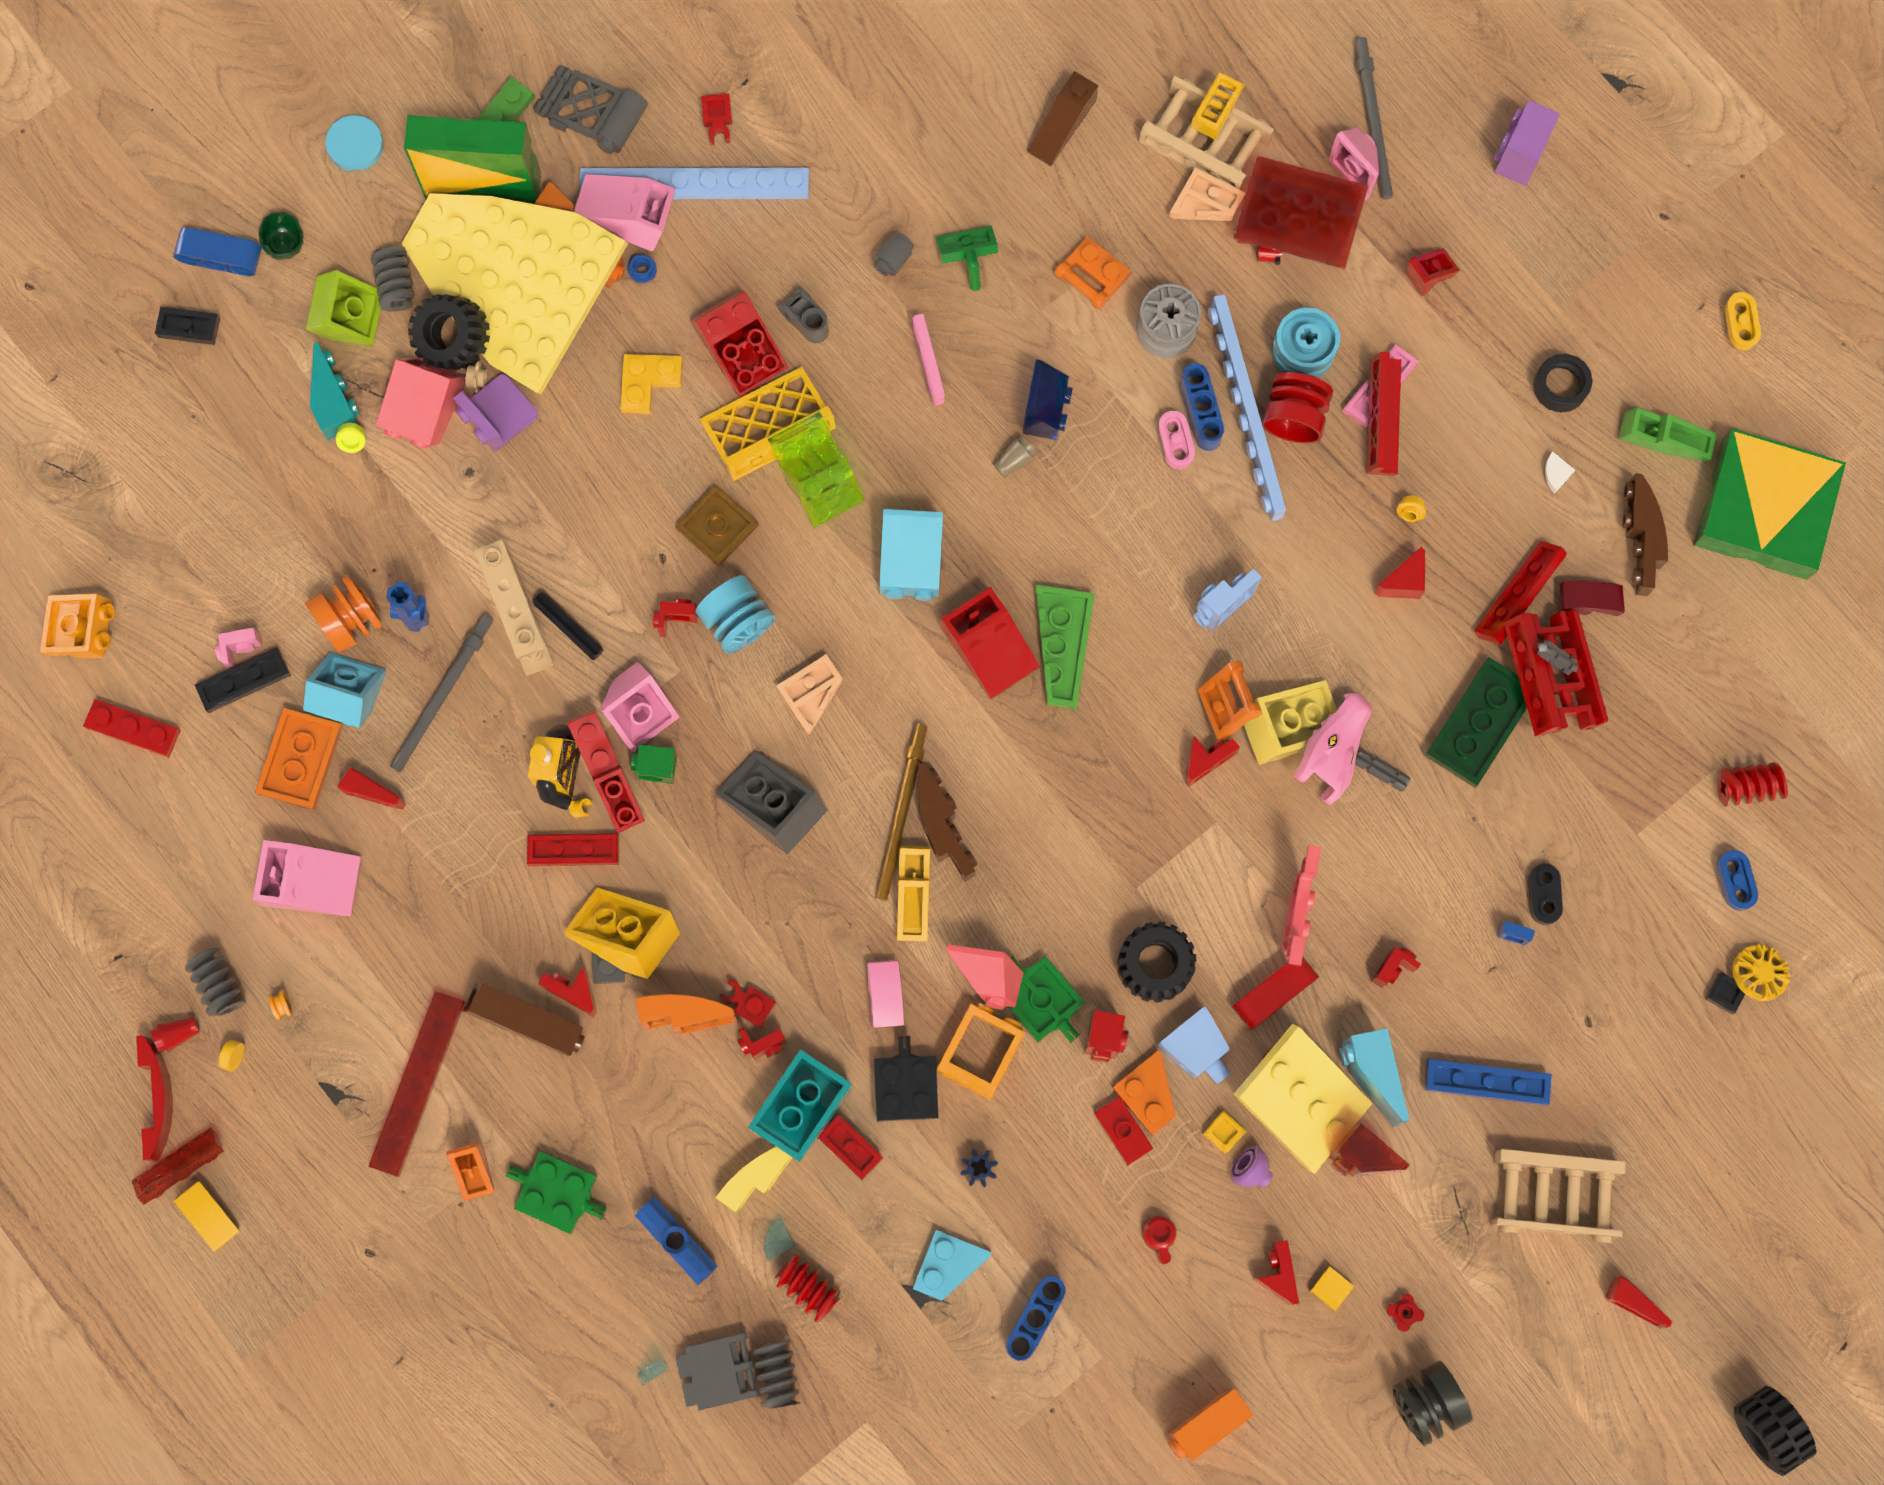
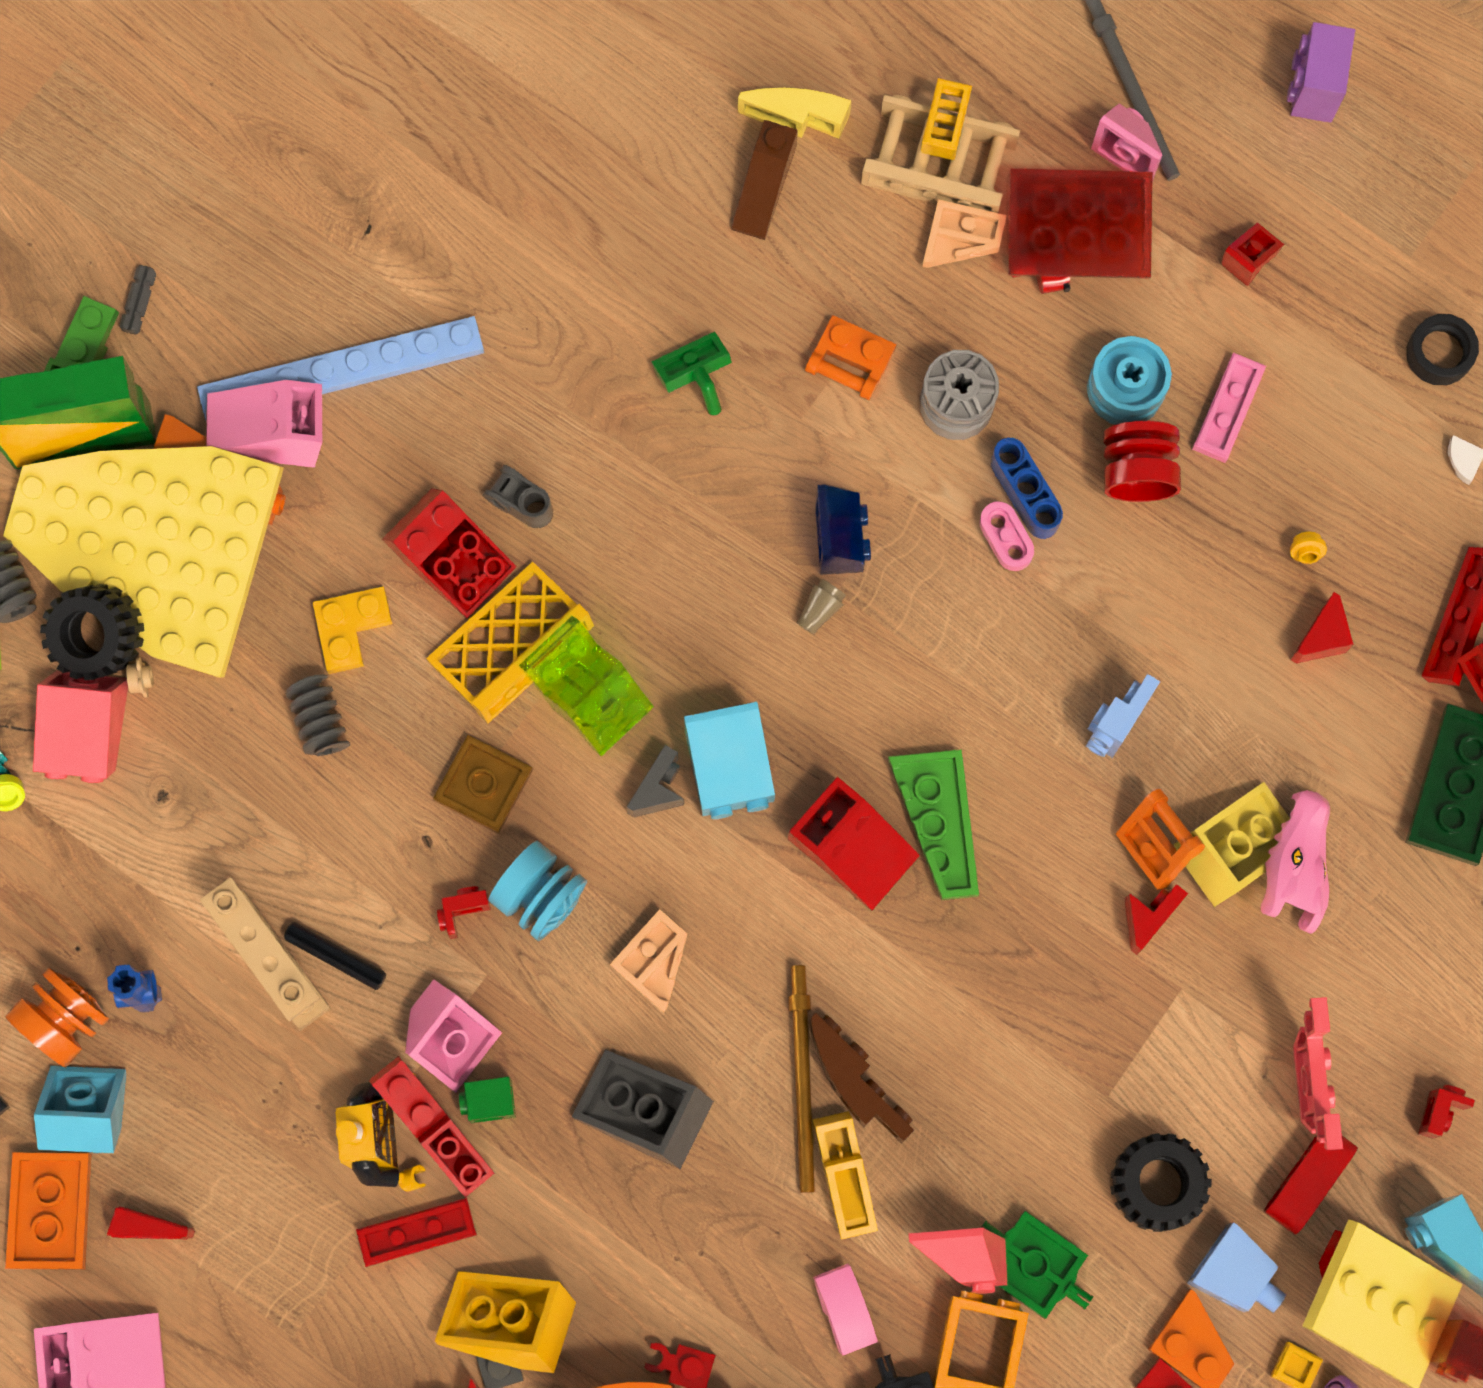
camera: 15 degrees left, 0 degrees up
(471, 644) = (224, 1009): dark grey bar -> none
(496, 412) = (176, 714): medium lavender bracket -> none
(601, 440) = (314, 716): none -> dark grey piece
(617, 116) = (226, 314): dark grey piece -> none
(642, 261) = (299, 483): blue plate -> none
(717, 115) = (346, 278): red plate -> none
(844, 566) = (651, 795): none -> dark grey slope
(893, 254) = (606, 396): dark grey brick -> none
(928, 359) = (683, 514): bright pink tile -> none
(1104, 70) = (797, 109): none -> light yellow slope
(1106, 1036) = (1126, 1292): red brick -> none
(1249, 418) = (1086, 486): light blue plate -> none
(1382, 770) = (1361, 874): dark grey axle -> none
(1383, 415) = (1244, 443): red fence -> none

